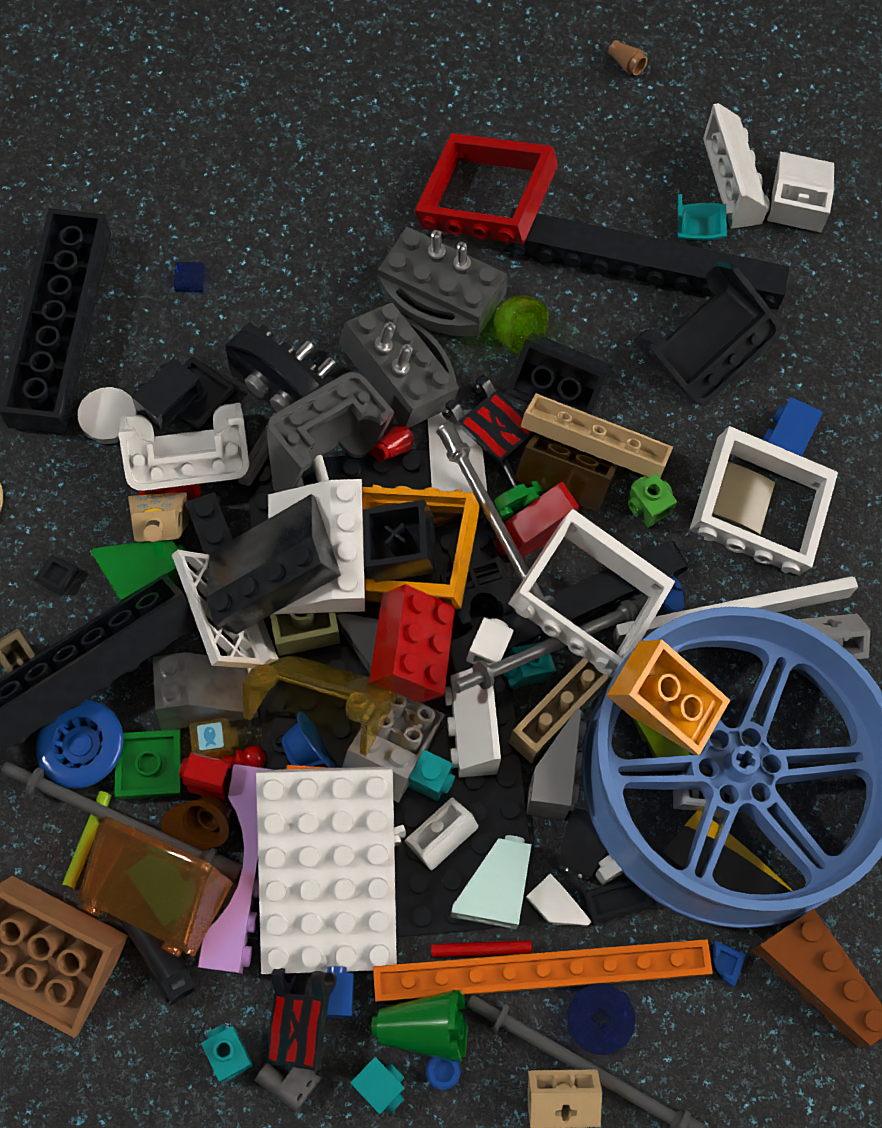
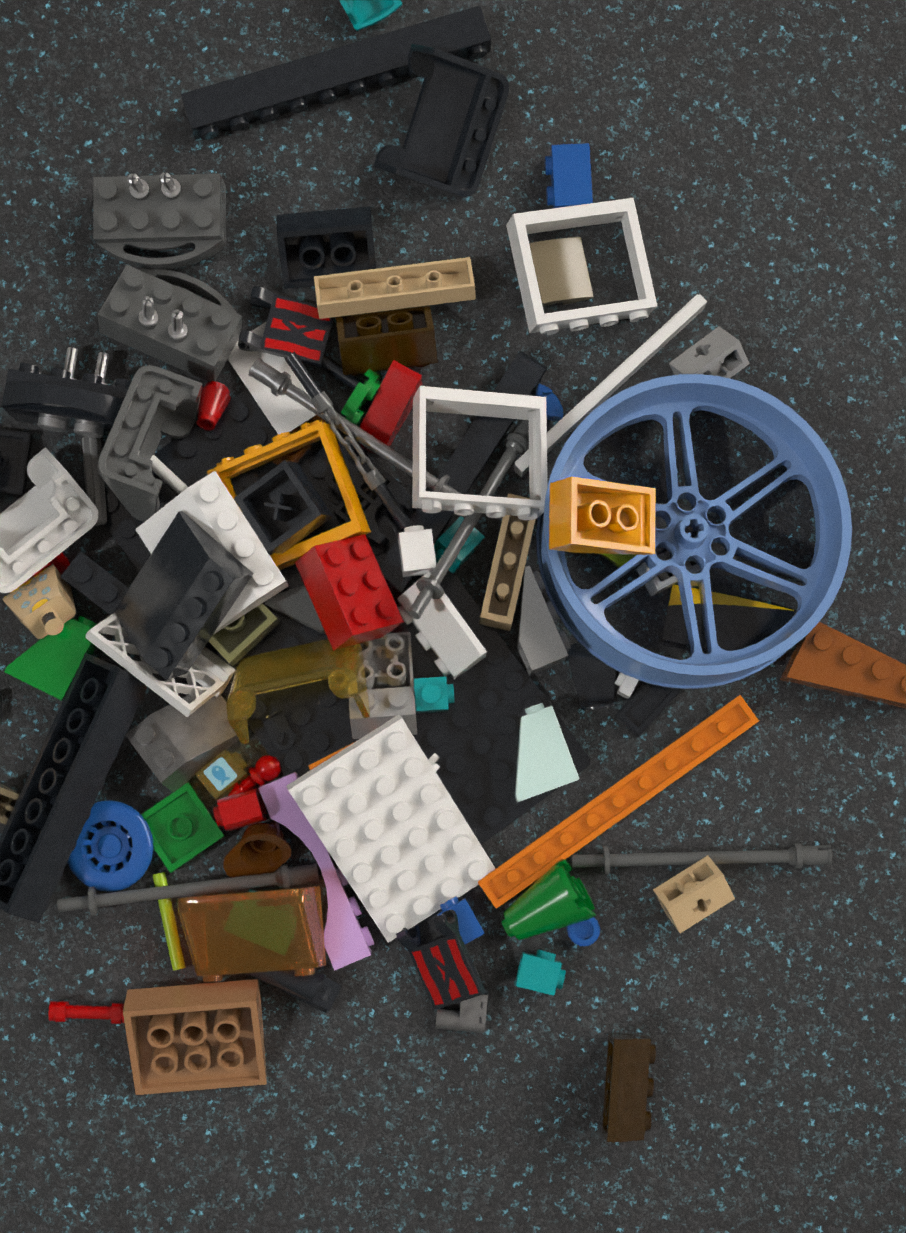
camera: 30 degrees left, 15 degrees up
(226, 1053) = (399, 1022): teal brick -> none
(305, 746) = (310, 734): blue piece -> none
(442, 833) = (468, 737): white slope -> none
(481, 948) = (557, 812): red bar -> none
(489, 151) = (130, 41): red window -> none
(489, 565) = (322, 404): none -> piece
(518, 319) = (255, 212): clear neon green cylinder -> none
(556, 904) = (598, 739): white slope -> none
(615, 1005) = (705, 817): clear blue plate -> none
(651, 499) = (479, 332): bright green brick -> none
(727, 962) = (765, 702): blue tile -> none

